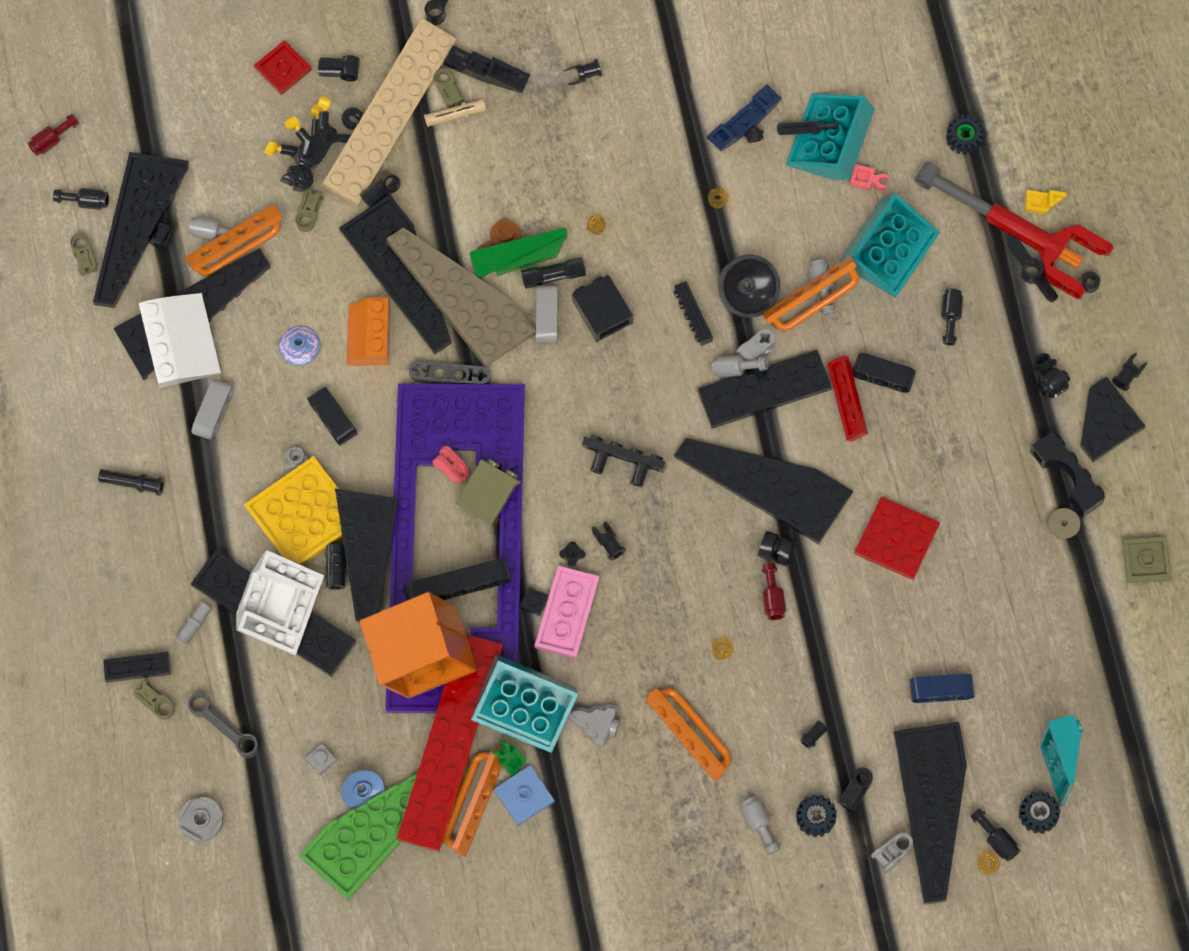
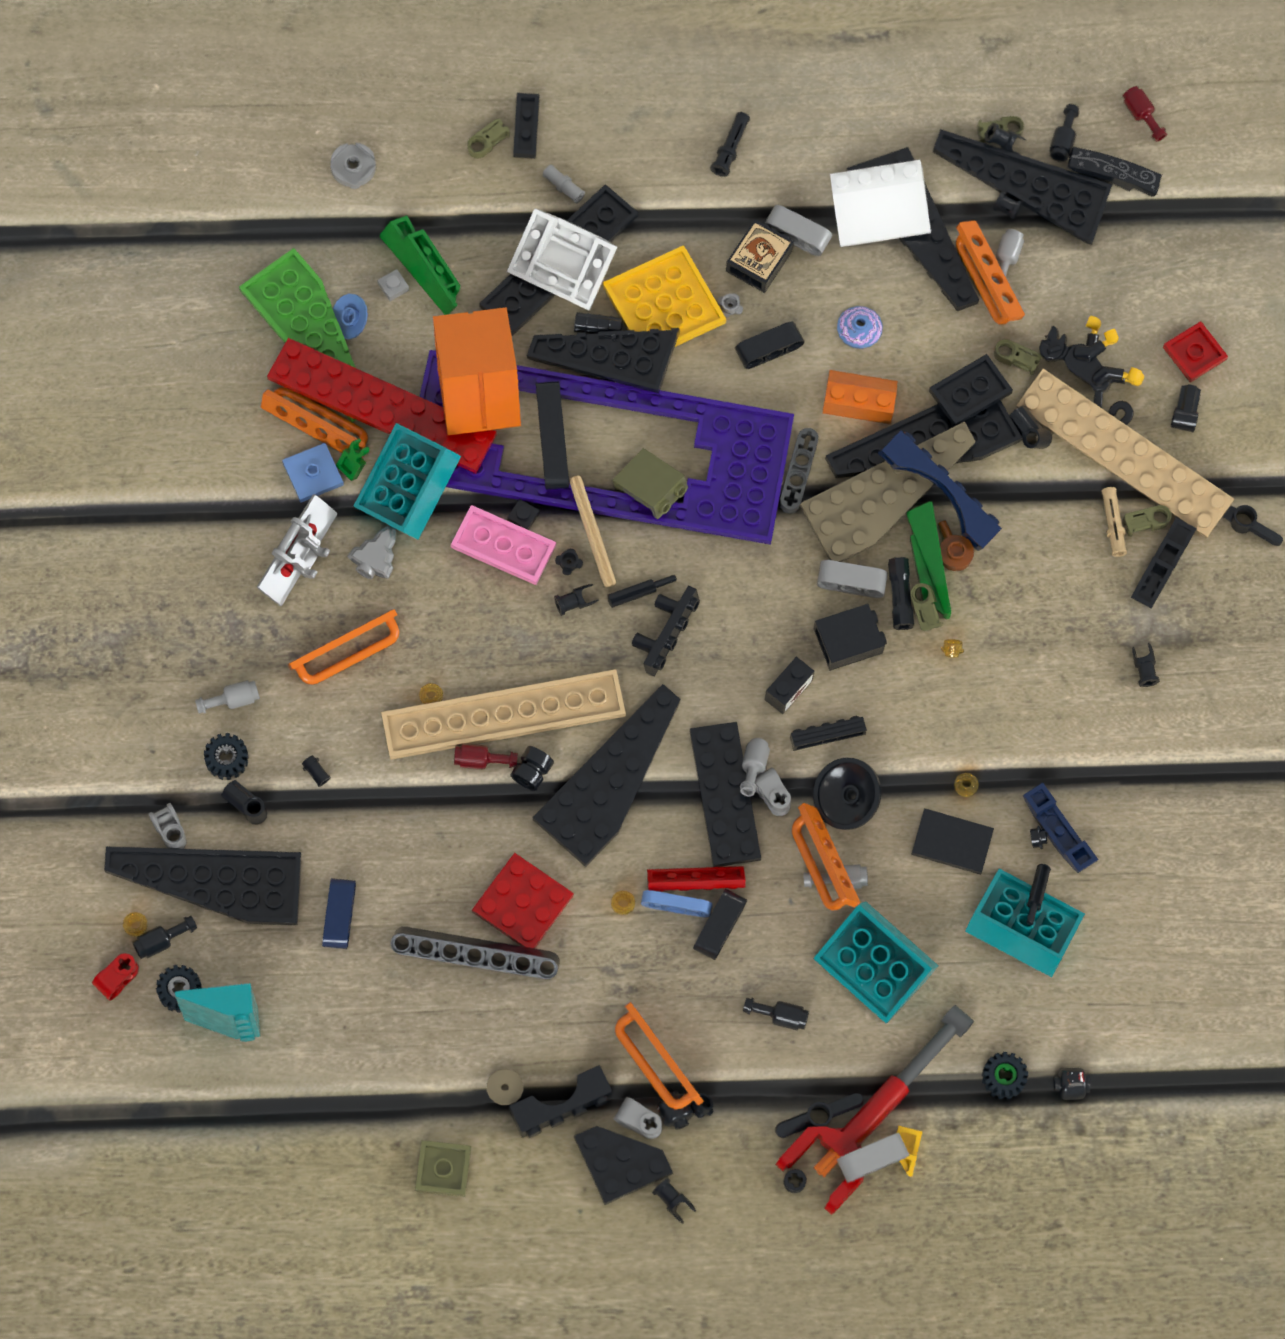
camera: 90 degrees right, 0 degrees up
(97, 244) = (1001, 137): none -> black piece
(115, 152) = (1114, 171): none -> black slope
(223, 725) = (448, 198): dark grey piece -> none
(243, 437) = (759, 256): none -> brick
(294, 735) = (423, 262): none -> green wedge
(353, 238) = (970, 390): none -> black plate
(456, 469) = (684, 459): coral plate -> none
(478, 221) = (975, 523): none -> dark blue arch
(542, 535) = (592, 531): none -> tan axle
(564, 249) = (926, 609): none -> olive piece
(590, 491) = (638, 591): none -> black axle
(607, 791) = (298, 550): none -> piece
(657, 349) = (789, 685): none -> black brick
(729, 584) = (503, 714): none -> tan plate
(770, 202) = (952, 841): none -> black tile
(865, 177) = (965, 951): coral plate -> none
(873, 410) = (676, 903): none -> medium blue beam
(880, 449) = (623, 895): none -> clear yellow plate
(954, 566) = (487, 949): none -> black beam
(961, 82) = (1072, 1083): none -> black head
(1030, 404) = (692, 1094): none -> orange piece
(1042, 869) = (115, 978): none -> red piece
(1063, 217) = (873, 1157): none -> light grey beam
(1068, 411) = (635, 1116): none -> light grey piece

